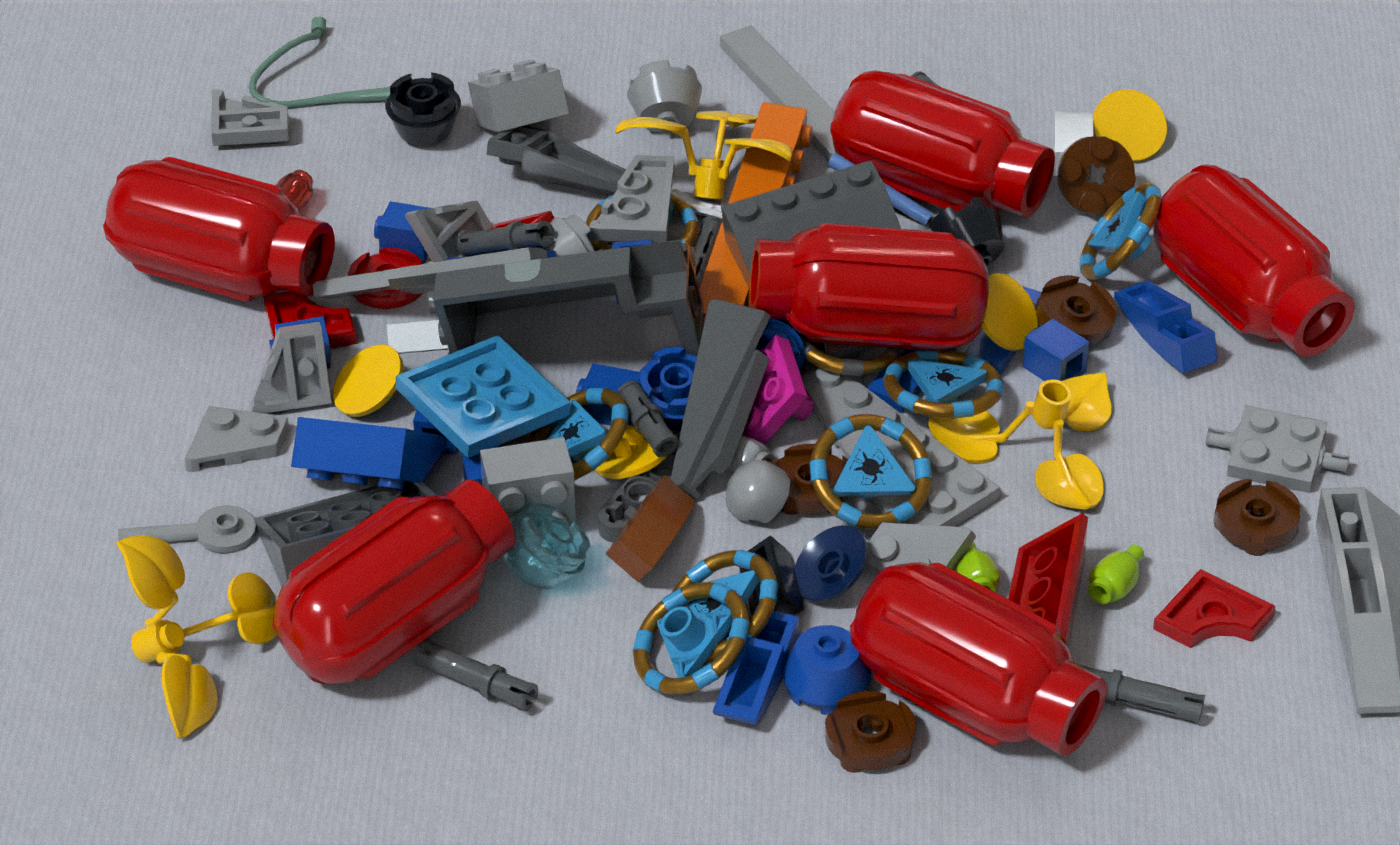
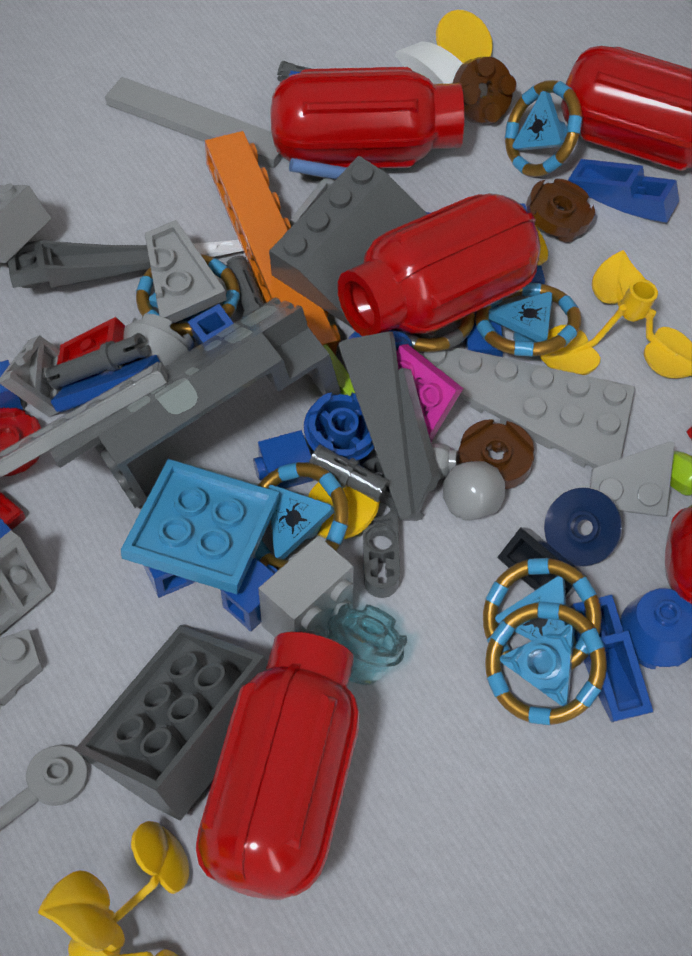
camera: 35 degrees left, 15 degrees up
(364, 452) = (134, 632): blue slope -> none
(367, 380) = (75, 555): yellow piece -> none
(414, 336) = (77, 481): white sticker -> none
(490, 680) = (401, 801): dark grey pin -> none
(651, 528) = (426, 573): dark orange slope -> none
(665, 93) = (114, 168): light grey cone -> none
(711, 172) = (201, 218): yellow plant -> none
(871, 471) = (555, 428): piece -> none
(976, 224) = (441, 182): black cone -> none
(1055, 352) = (575, 251): blue brick -> none

